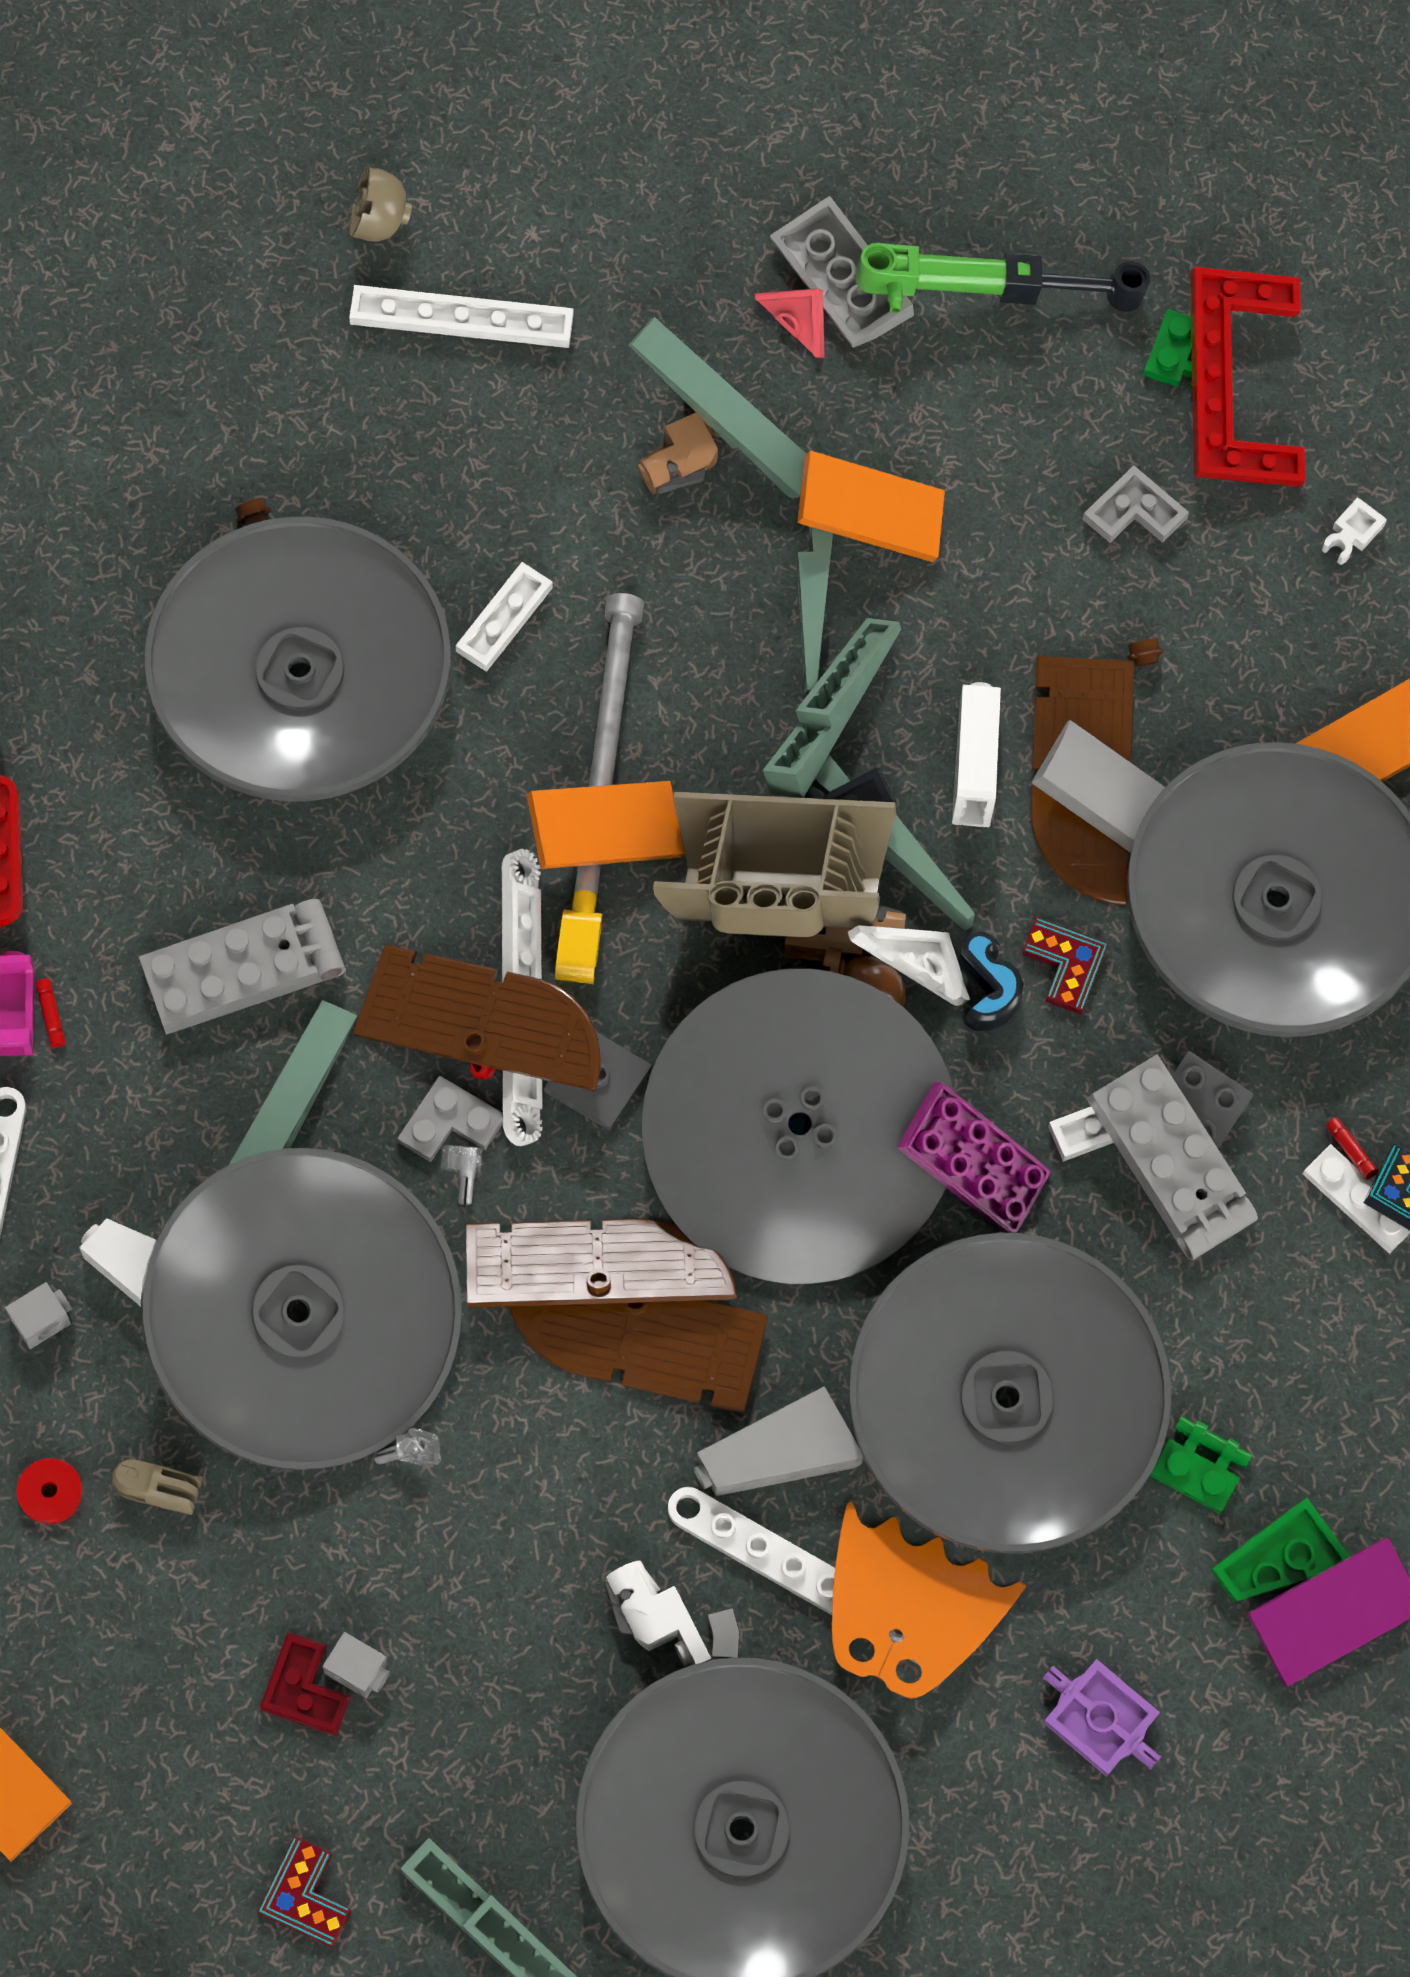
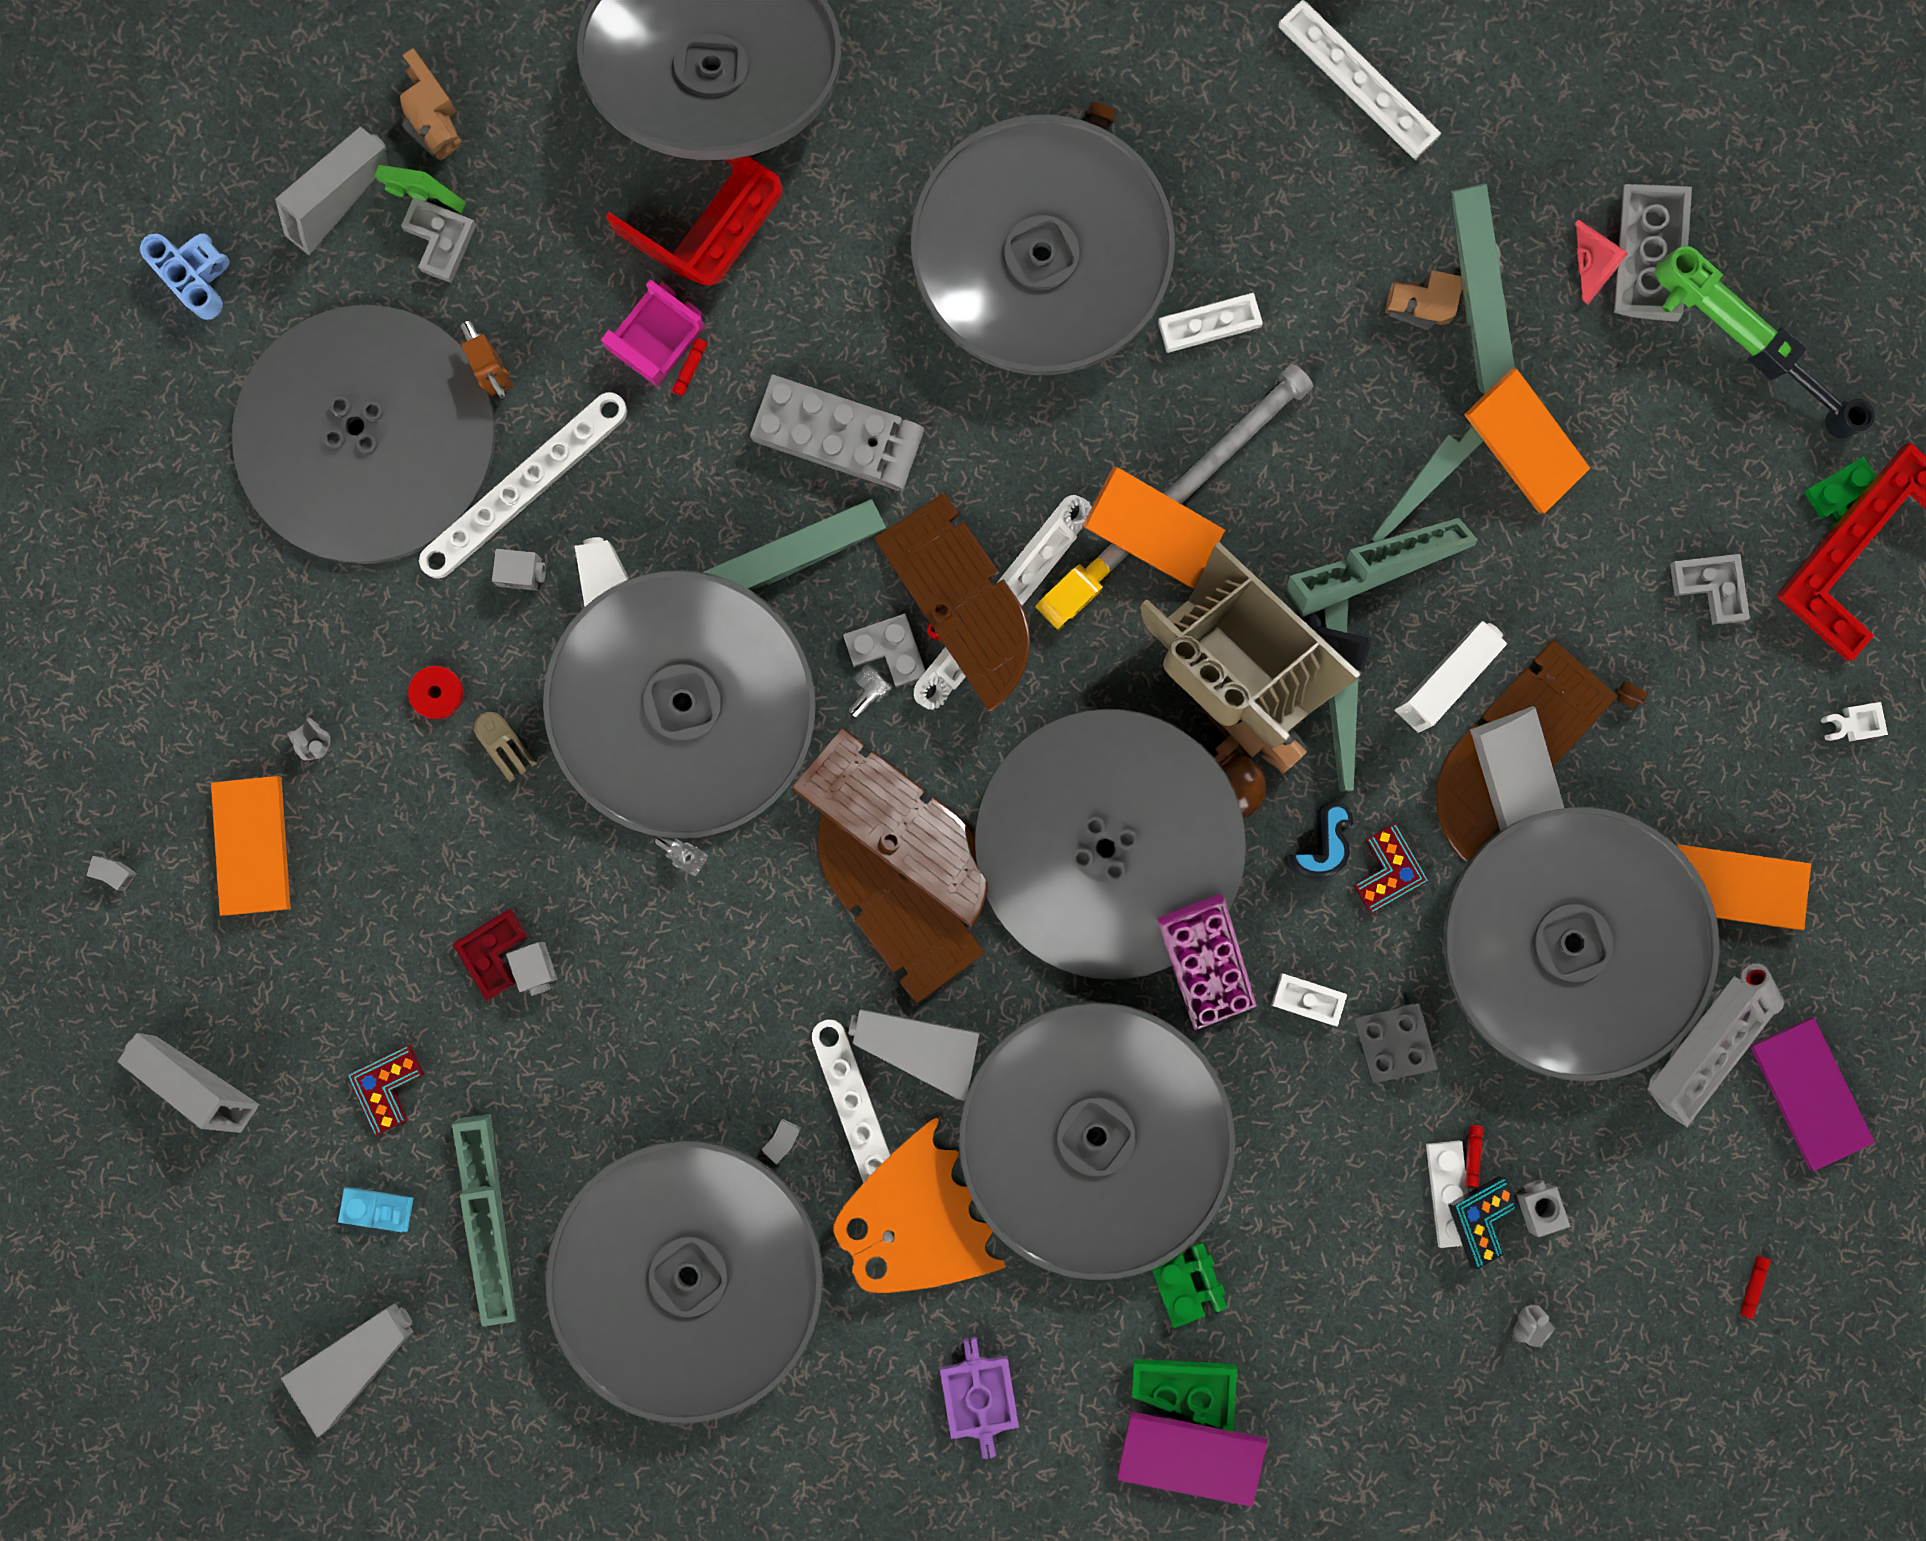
camera: 45 degrees right, 15 degrees up
(617, 1084) = (1020, 710): dark grey plate -> none
(653, 1616) = (745, 1091): white plate -> none
(920, 955) = (1289, 789): white wing -> none
(1173, 1157) = (1345, 1066): light grey hinge -> none

